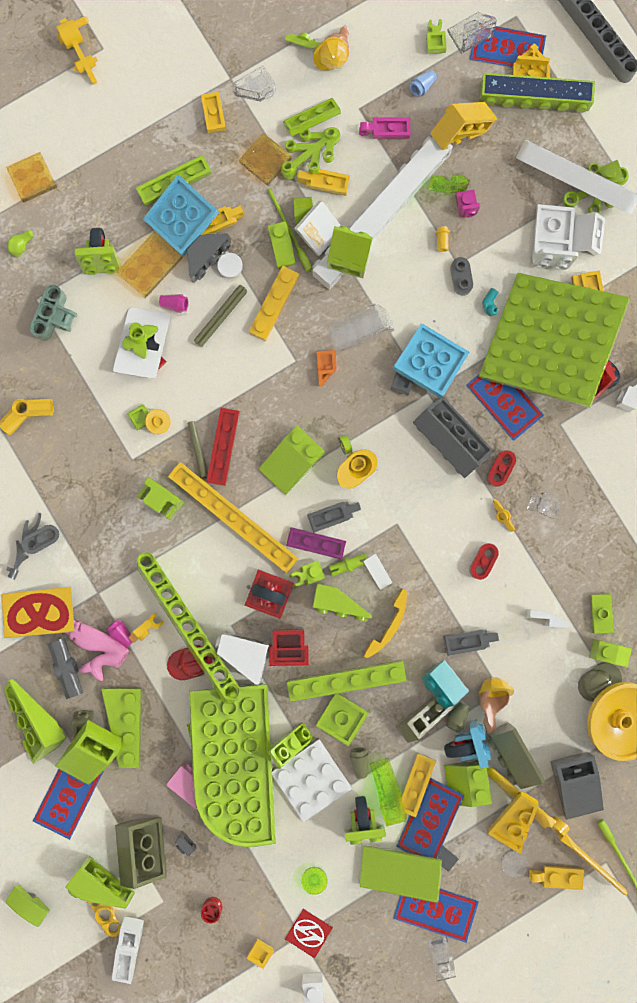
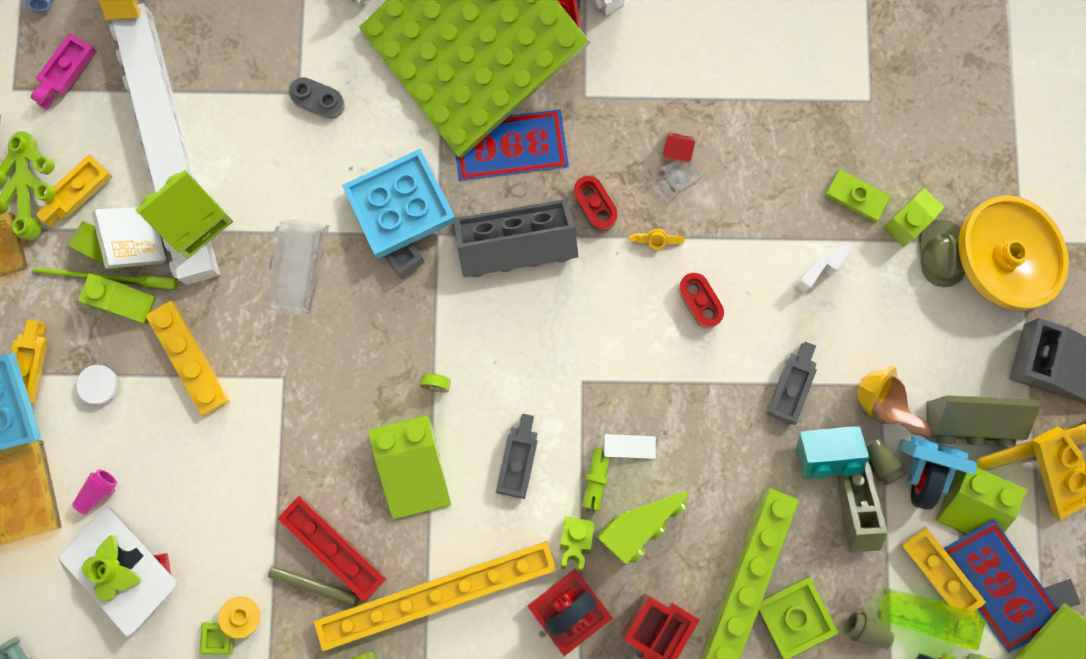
camera: 55 degrees left, 5 degrees down
(205, 253) = (57, 407): dark grey slope -> none
(220, 315) = (155, 440): olive axle -> none
(316, 543) = (541, 504): magenta tile -> none
(326, 365) = (315, 342): orange slope -> none
(356, 468) = (476, 387): yellow piece -> none
(400, 603) = (726, 512): yellow slope -> none
(442, 239) = (251, 90): yellow pin -> none
(457, 184) = (195, 30): clear neon green slope -> none
(467, 203) = (229, 33): dark pink bracket -> none
(488, 302) = (373, 87): teal arm -> none
(564, 495) = (678, 146): none -> red slope

